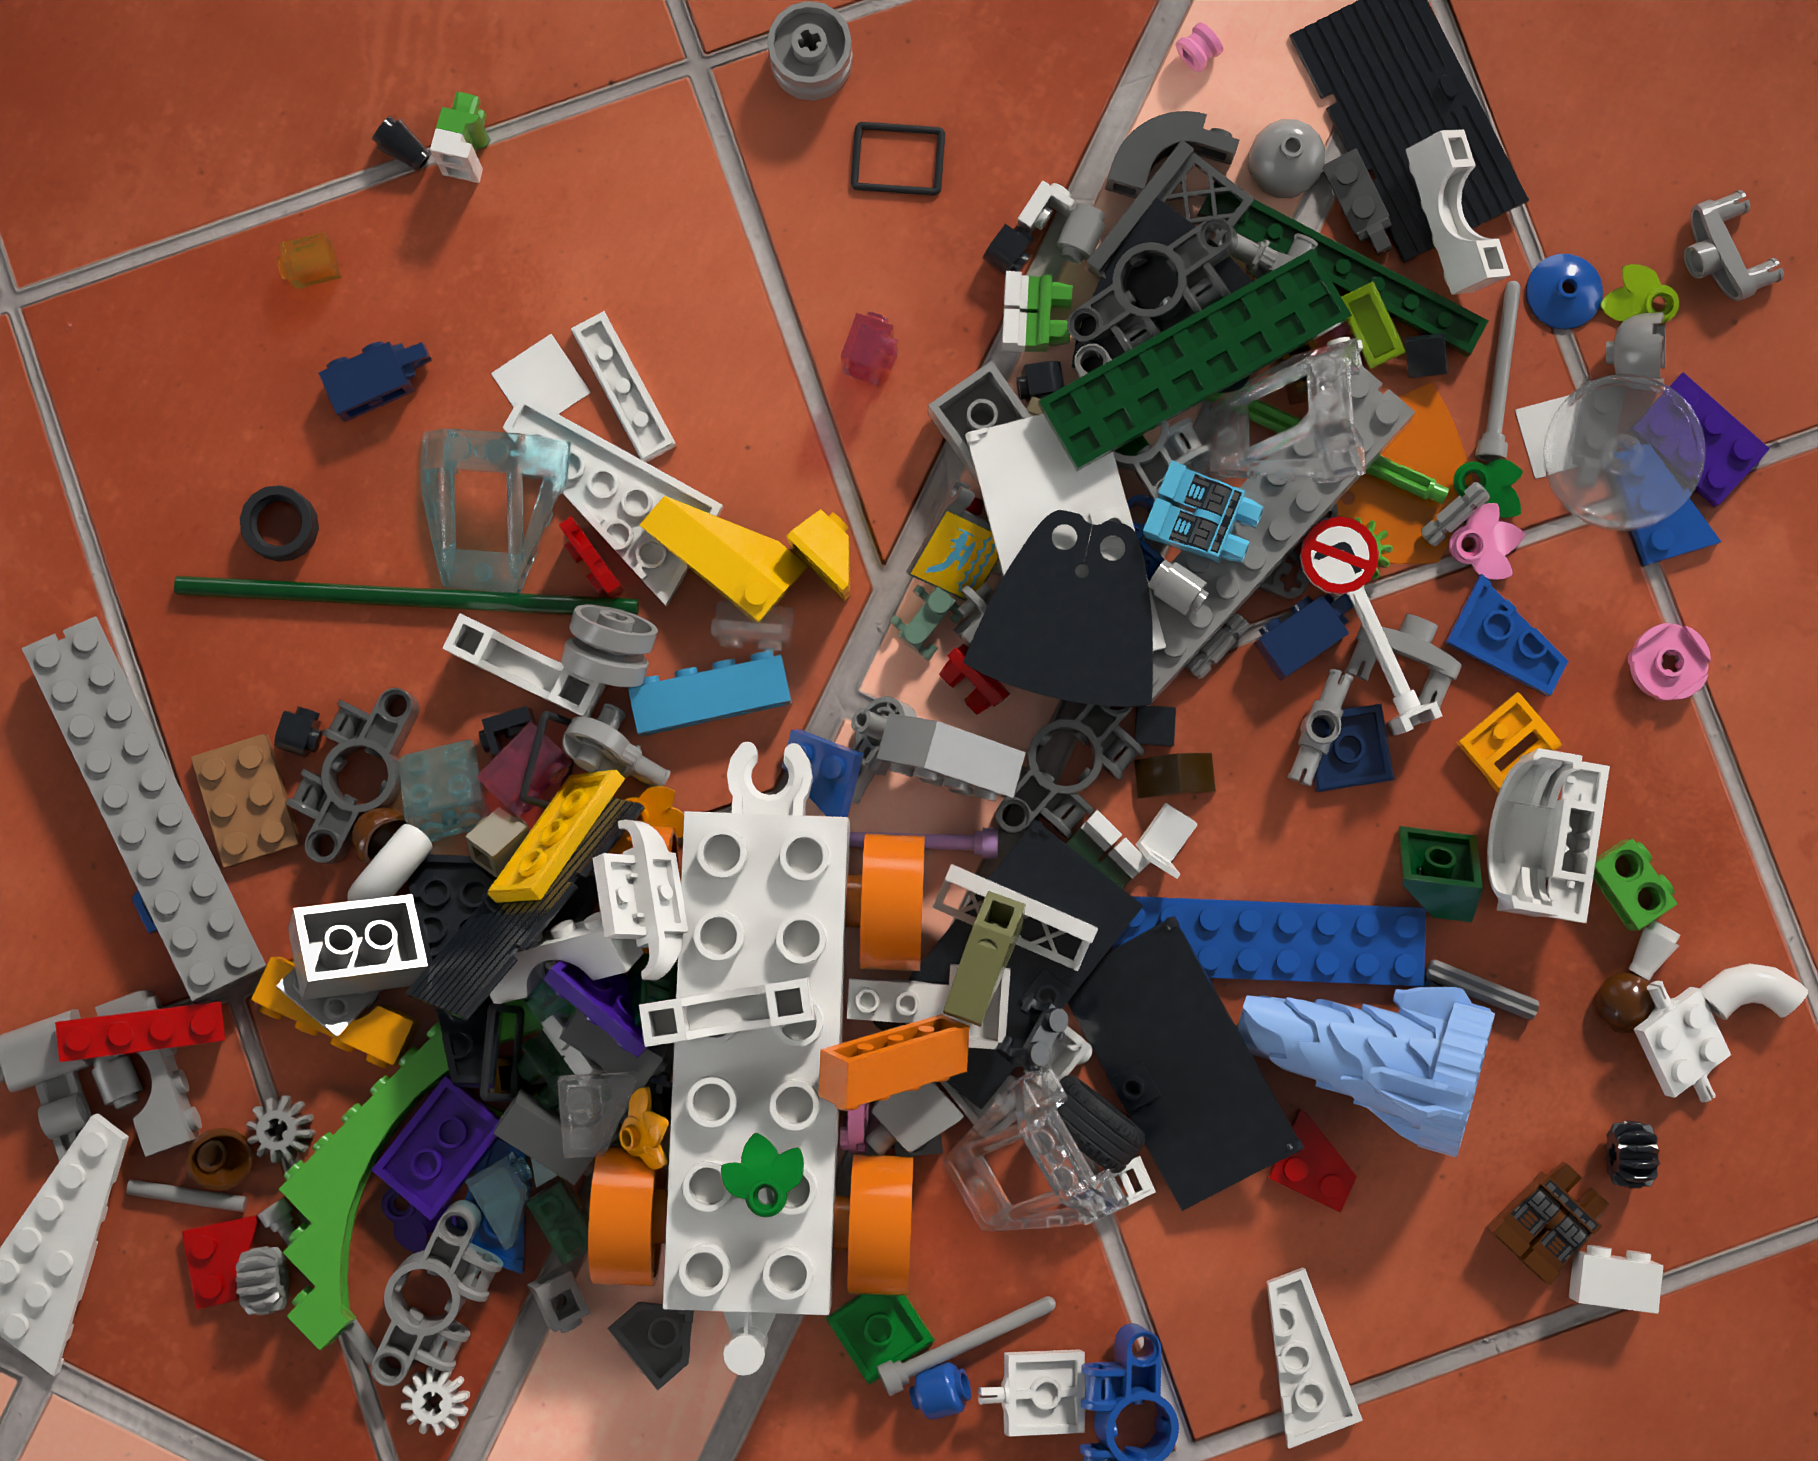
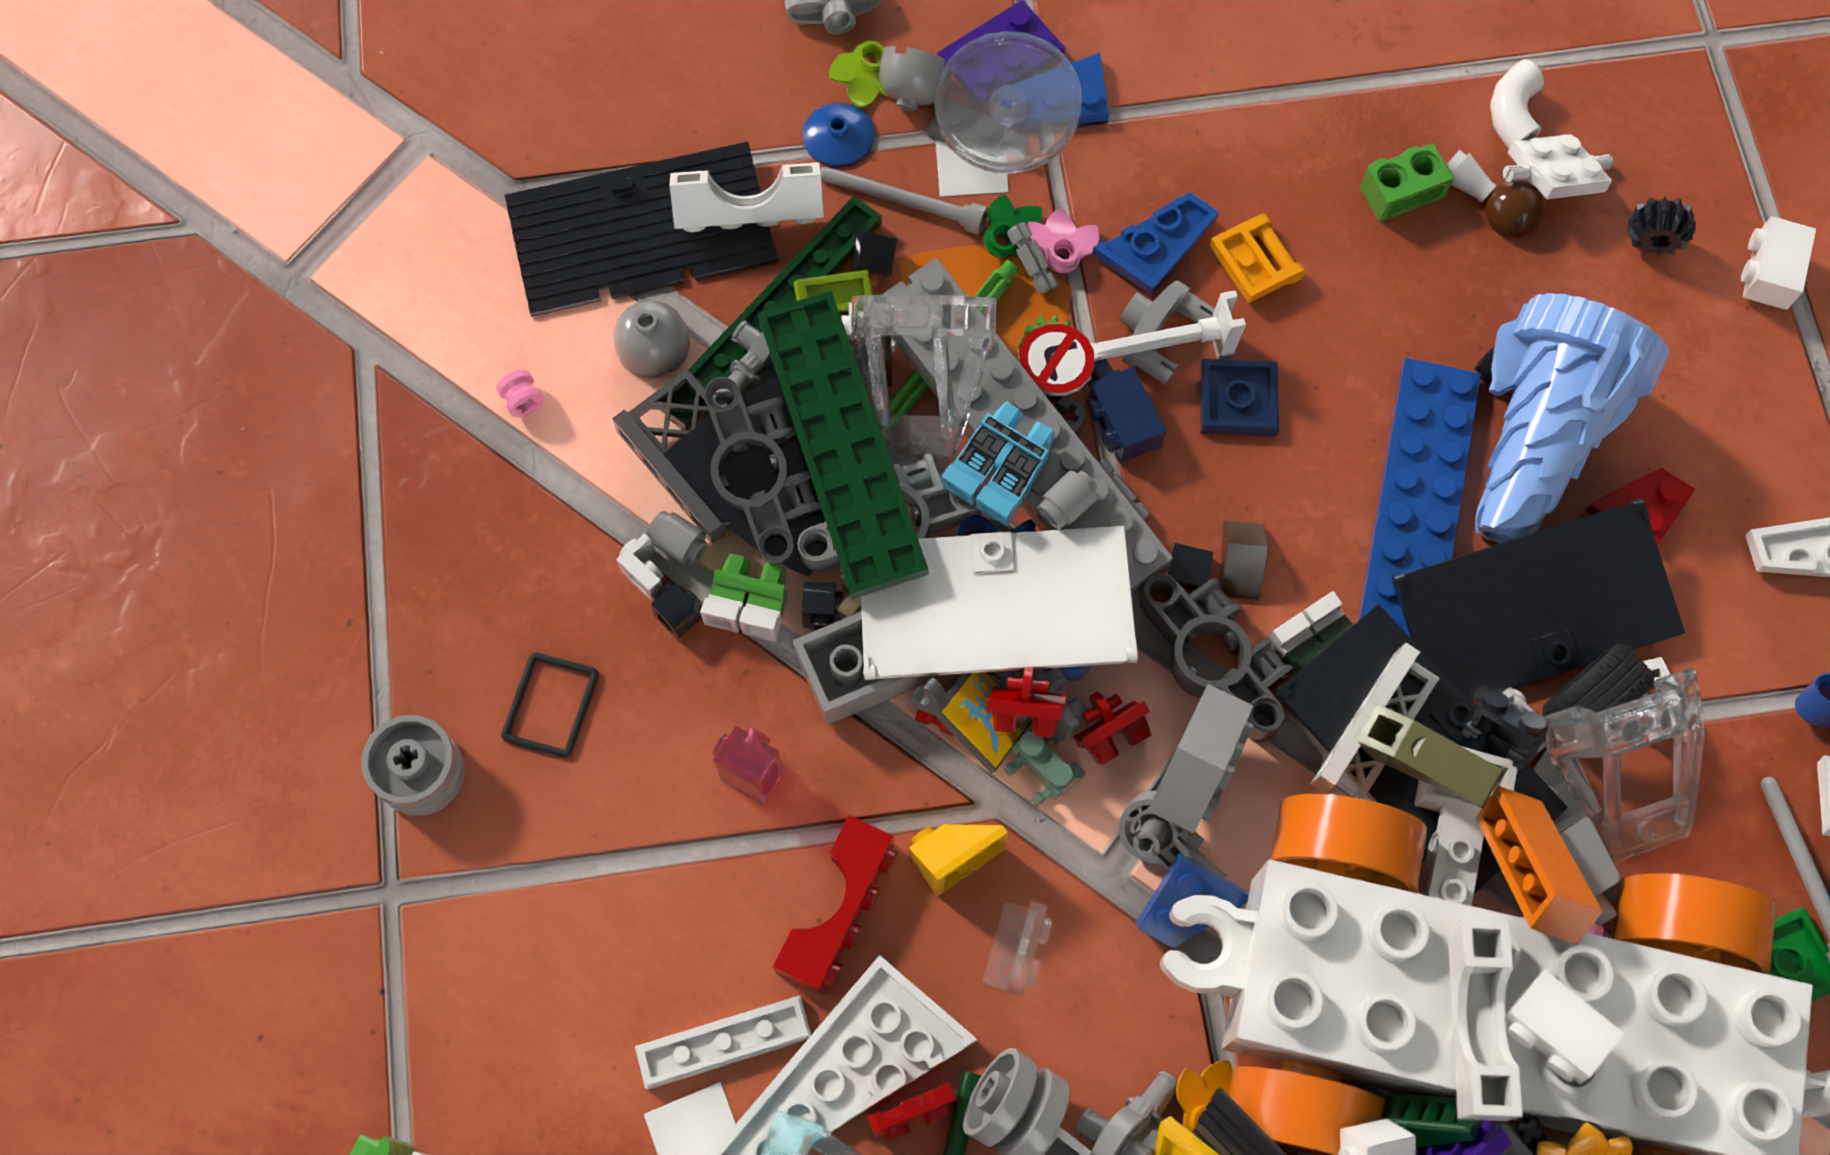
camera: 80 degrees left, 15 degrees down
(643, 897) = (1331, 1099): white plate -> none
(711, 694) = (1084, 1007): dark azure brick -> none
(734, 1080) = (1562, 1028): none -> white brick
(735, 561) = (946, 951): yellow wedge -> none
(761, 1169) = (1657, 1019): green plate -> none
(807, 470) = (812, 953): none -> red arch
(974, 586) = (1026, 698): none -> red hips
(982, 842) = (1285, 754): lavender piece -> none
(1066, 632) = (1095, 610): black piece -> none
(1157, 140) = (615, 471): dark grey arch -> none
(1165, 838) = (1305, 577): white bracket -> none
(1330, 709) = (1237, 419): light grey pin -> none
(1359, 199) = (710, 283): dark grey hinge -> none
(1441, 871) = (1373, 332): dark green slope -> none
(1483, 989) = (1488, 325): light grey axle -> none
(1545, 837) = (1359, 233): white piece -> none
(1547, 1224) = (1718, 311): reddish brown hips -> none
(1691, 667) = (1198, 131): bright pink plate -> none

